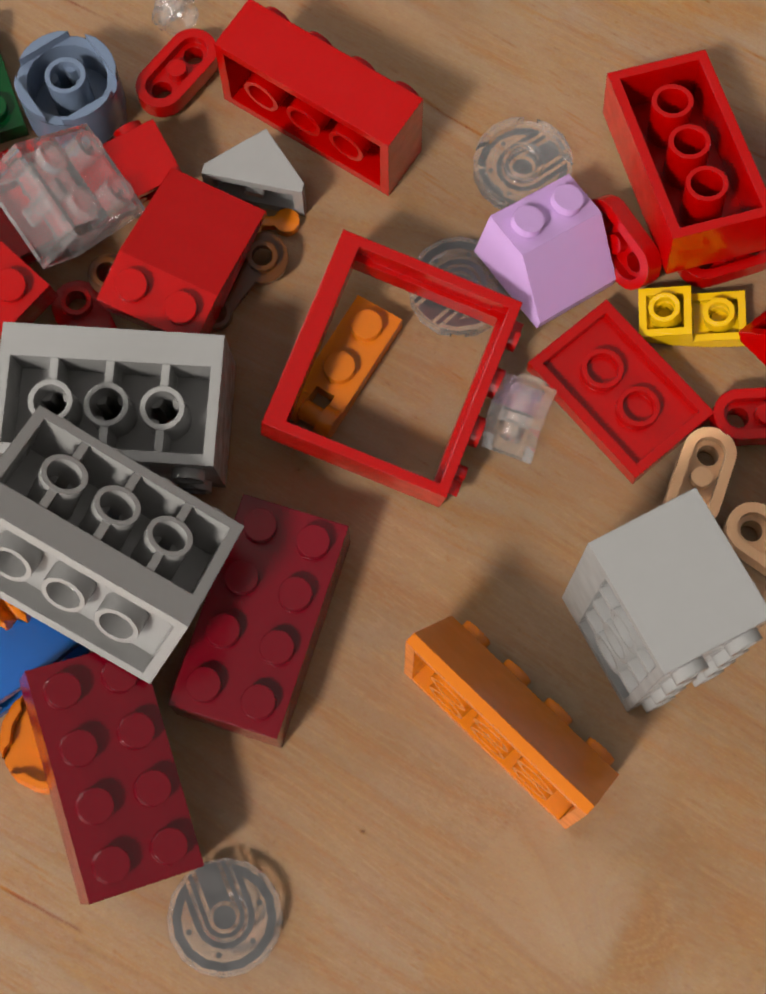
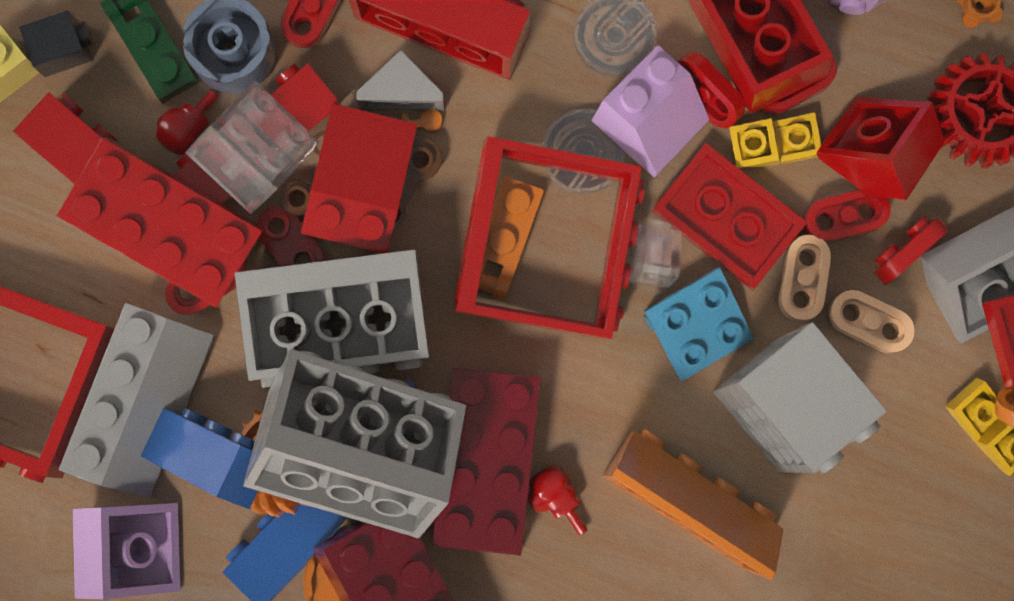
camera: 15 degrees left, 10 degrees up
(339, 677) = (555, 493): none -> red piece
(556, 506) = (699, 324): none -> dark azure hinge

